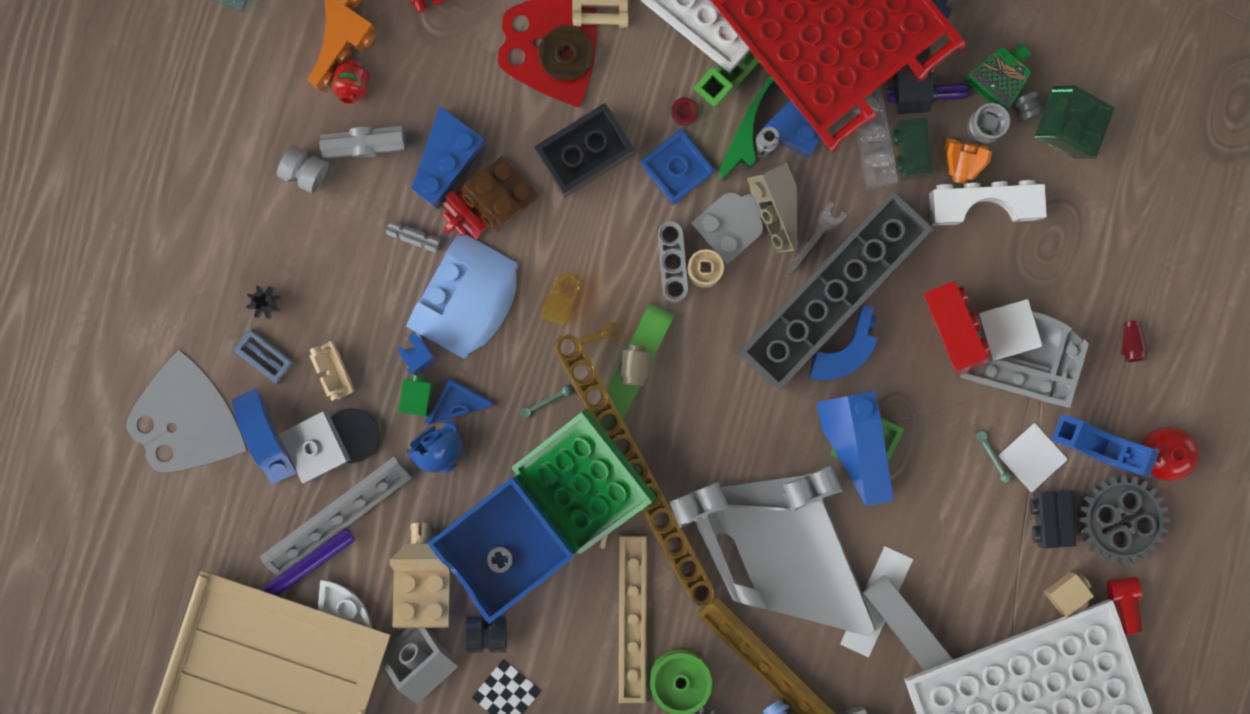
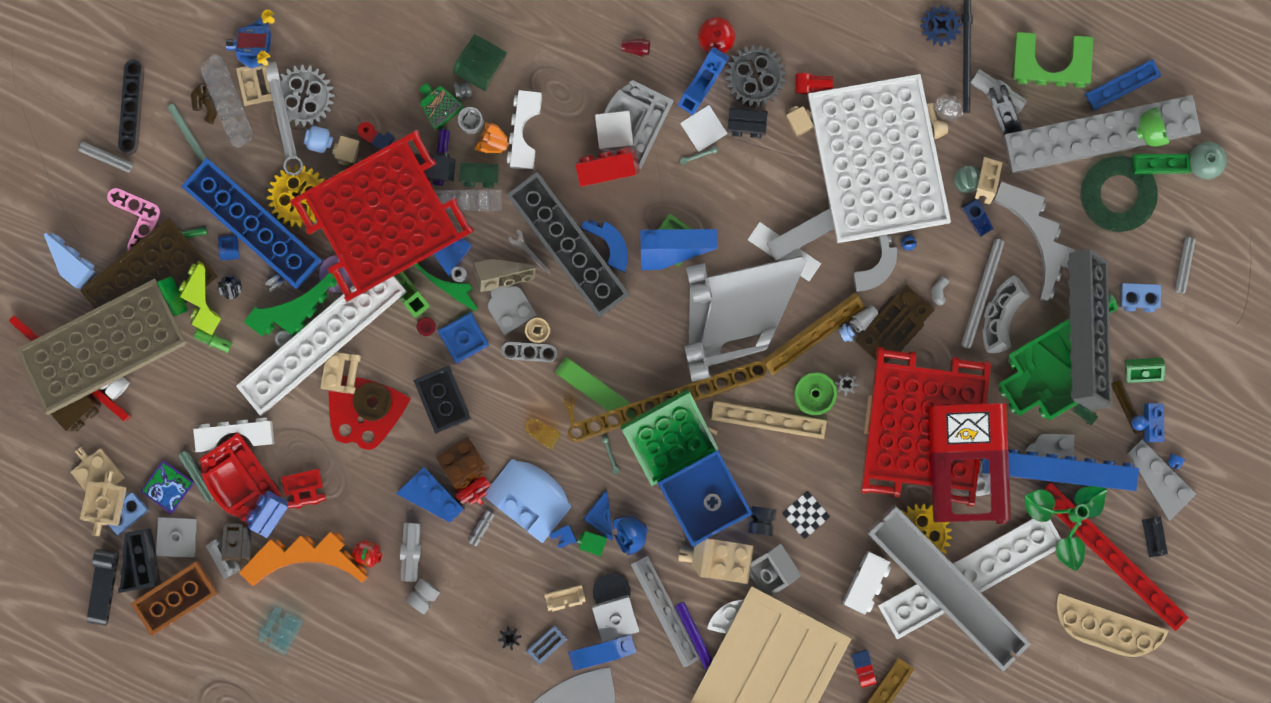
camera: 80 degrees left, 0 degrees up
(635, 365) = (596, 389): dark tan brick -> none

